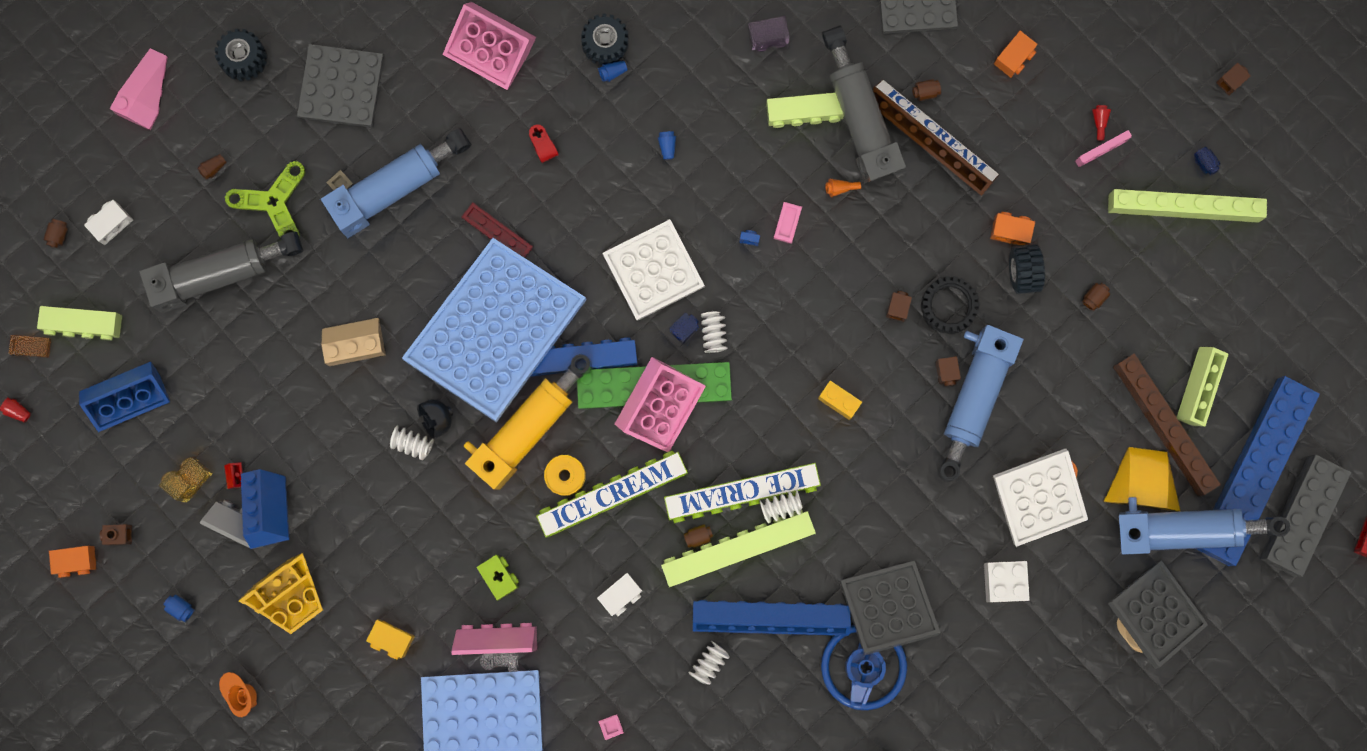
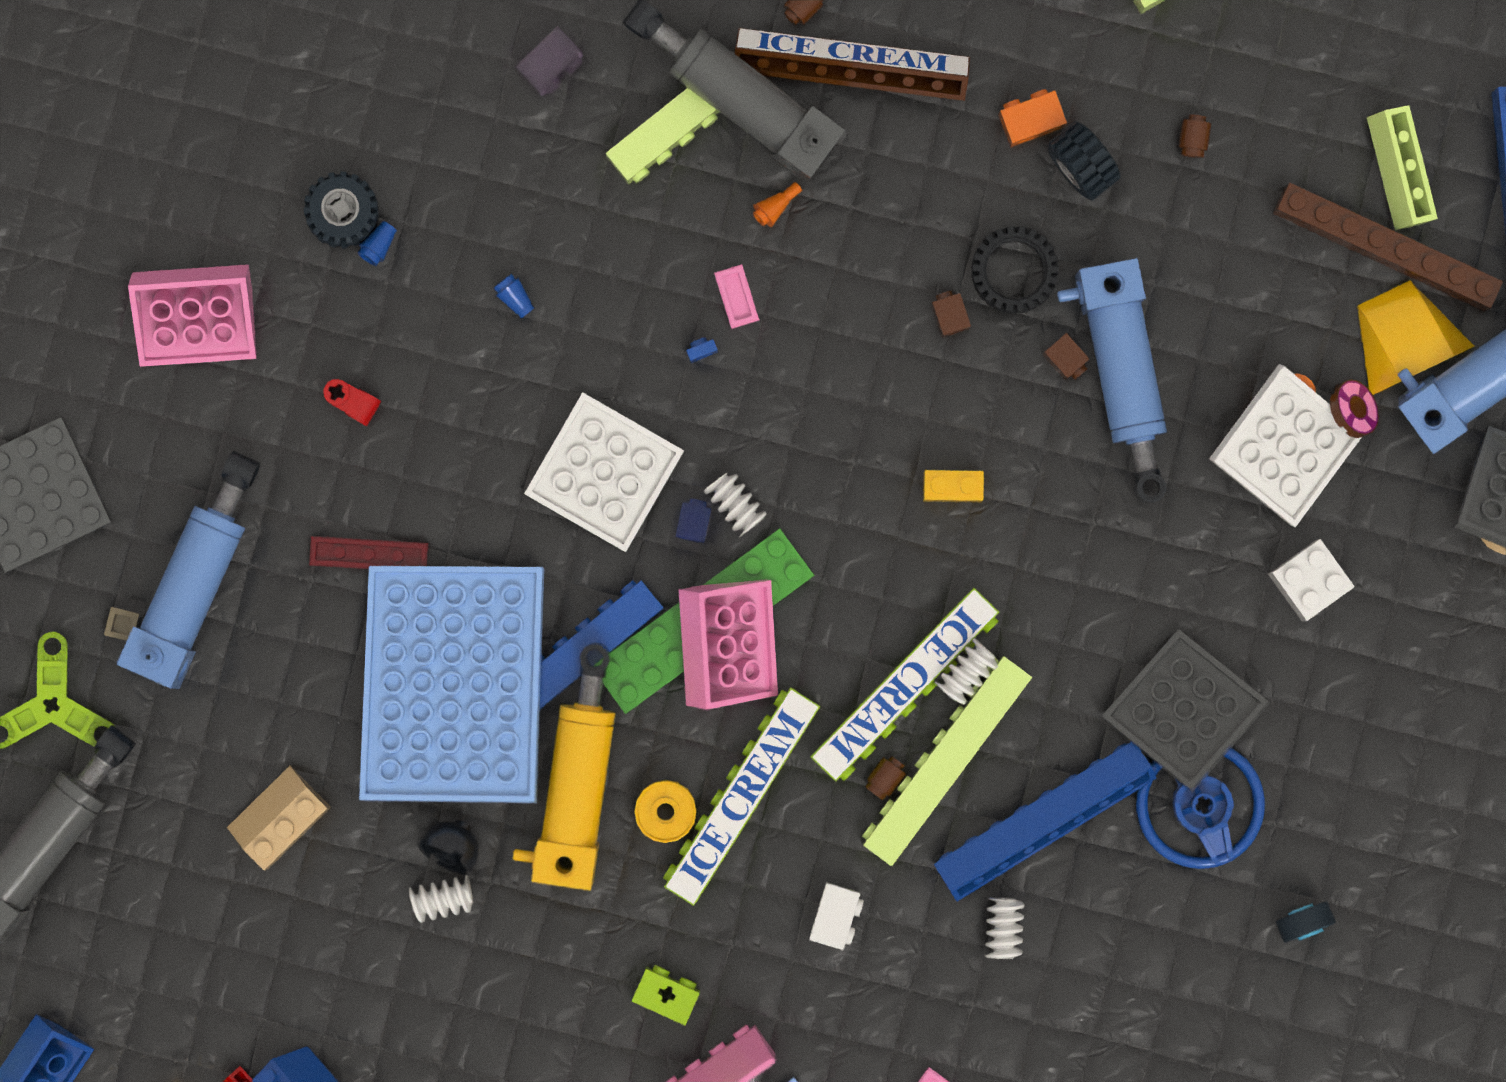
camera: 30 degrees left, 5 degrees up
(1091, 501) = (1354, 408): none -> tile

